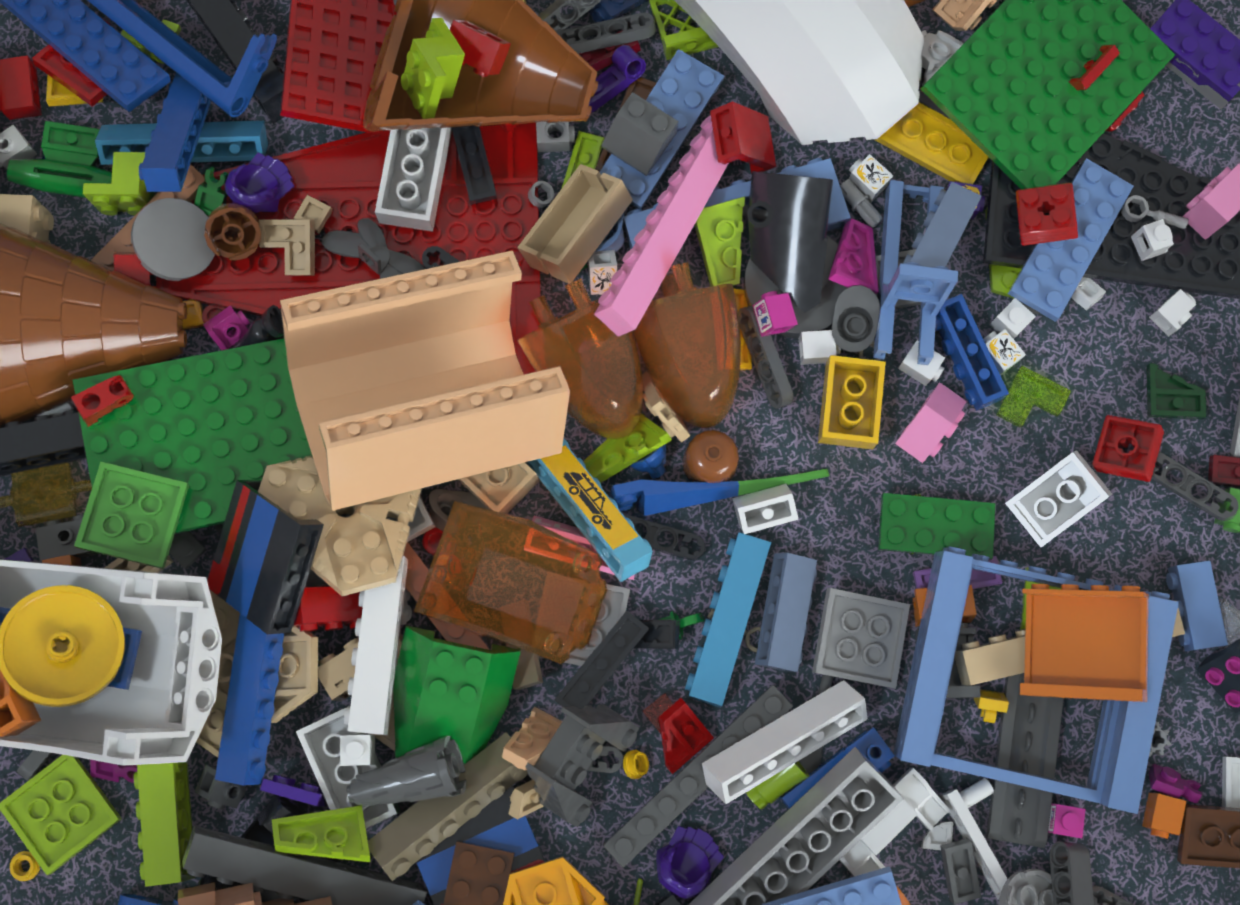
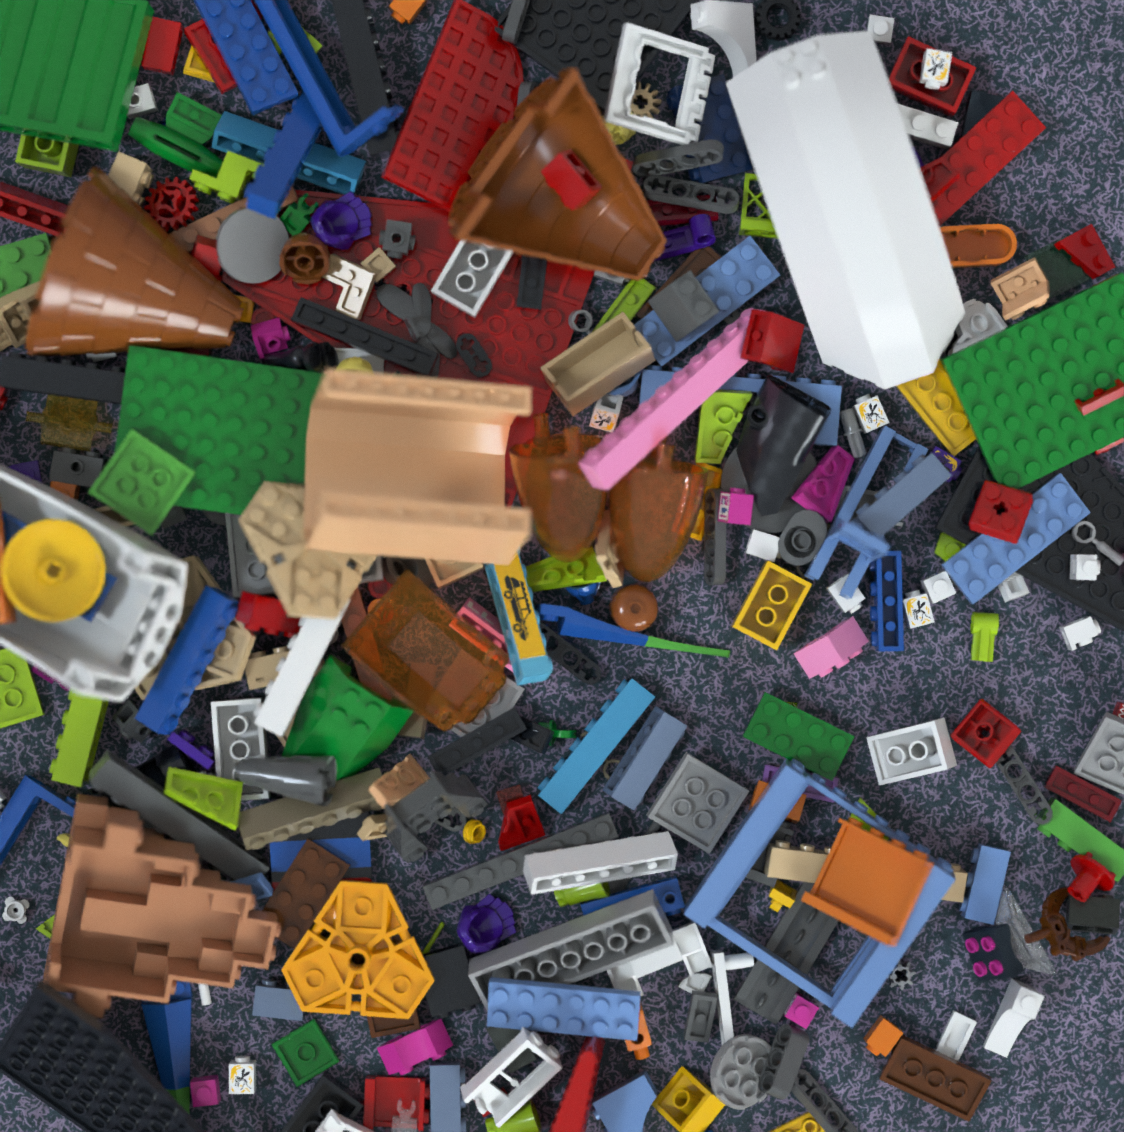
camera: 30 degrees right, 10 degrees up
(80, 232) = (183, 201): none -> red gear
(102, 399) = (149, 375): red leg -> none
(263, 559) = (234, 560): black panel -> none
(277, 287) = (364, 337): none -> black plate
(322, 178) = (393, 230): none -> dark grey brick
(357, 750) = (255, 738): white brick -> none
(432, 68) = (525, 191): lime bracket -> none
(765, 508) = (662, 666): white brick -> none
(1028, 390) = (926, 650): clear neon green plate -> none
(1077, 346) = (983, 635): none -> lime piece
(1170, 782) = (899, 1014): magenta plate -> none
(1172, 396) = (1046, 703): dark green wing -> none

